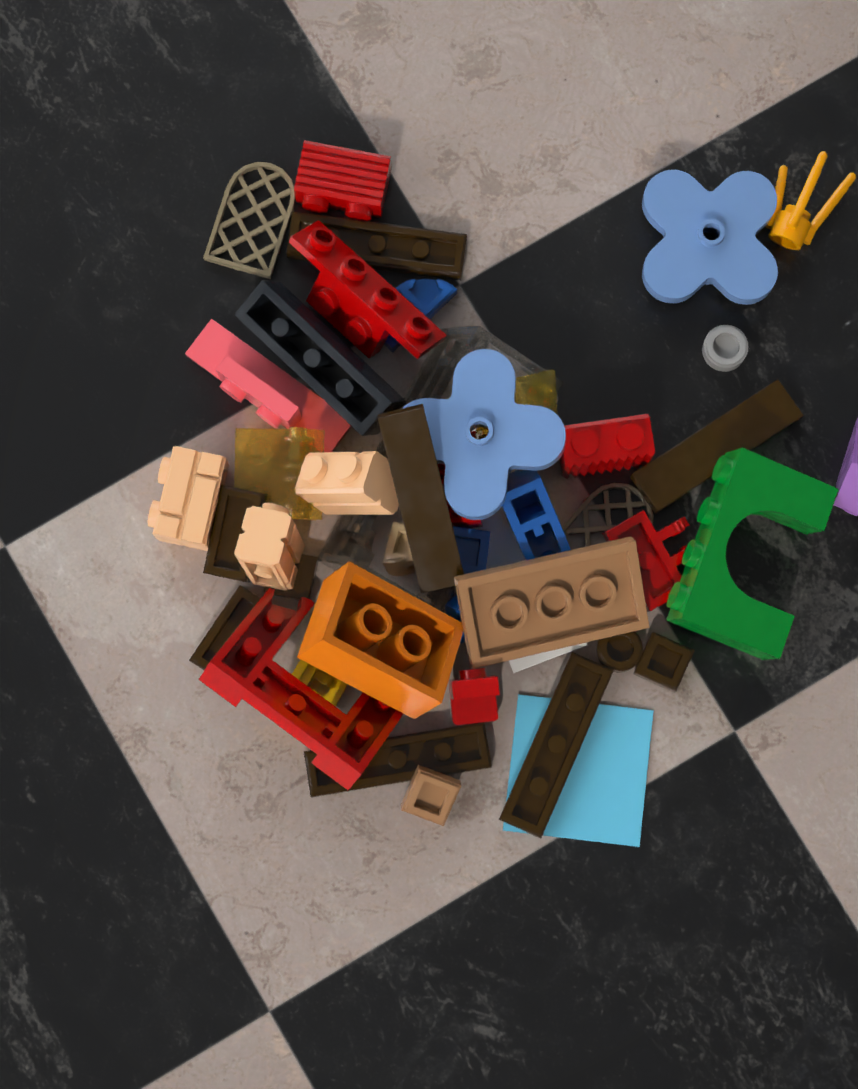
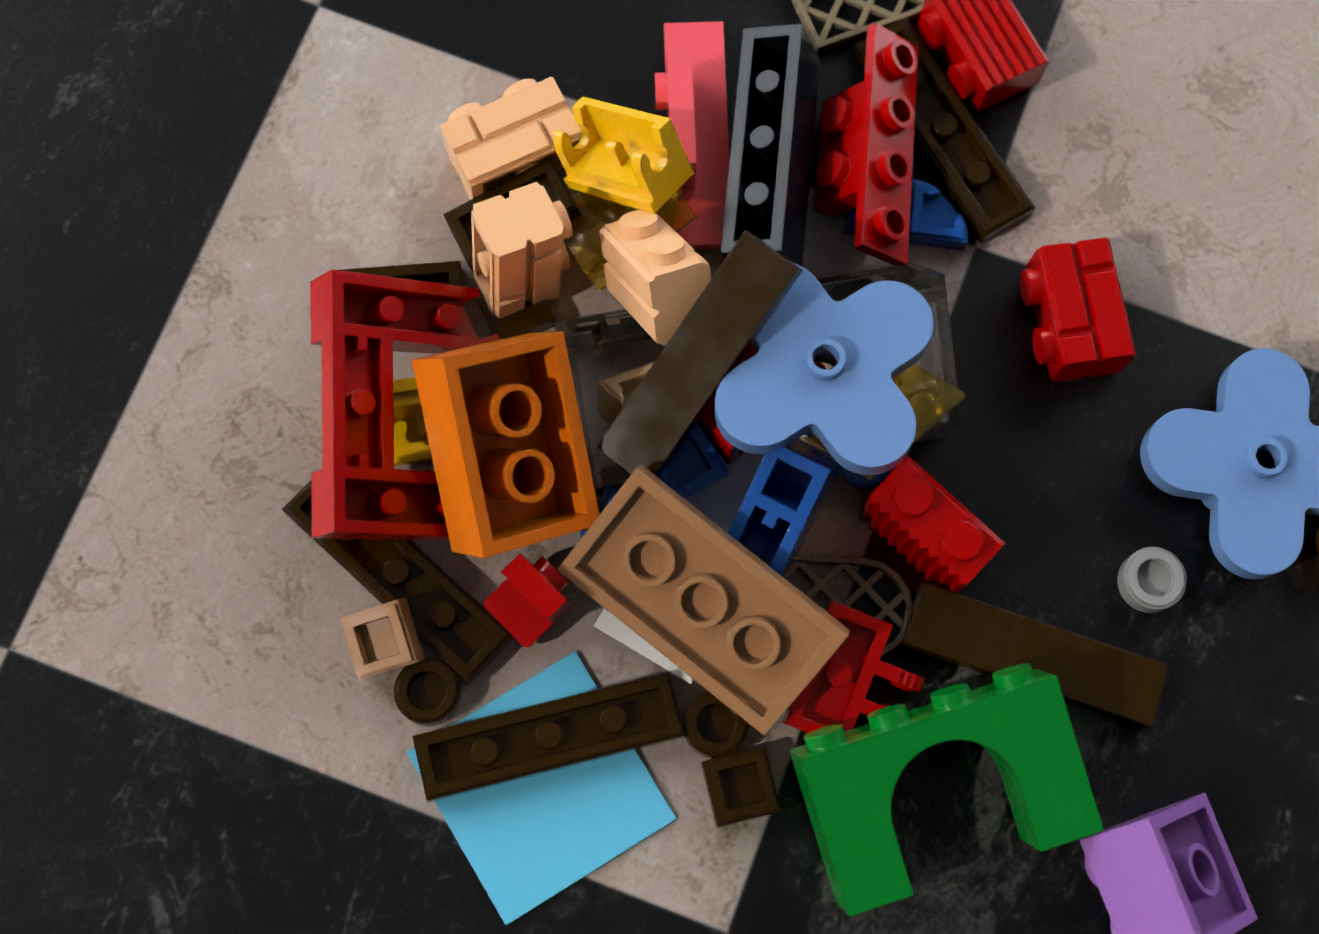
camera: 45 degrees right, 5 degrees down
(263, 446) = (623, 155): none -> yellow hinge
(479, 793) = (427, 692): none -> dark brown tile
(545, 262) = (1077, 310): none -> red brick

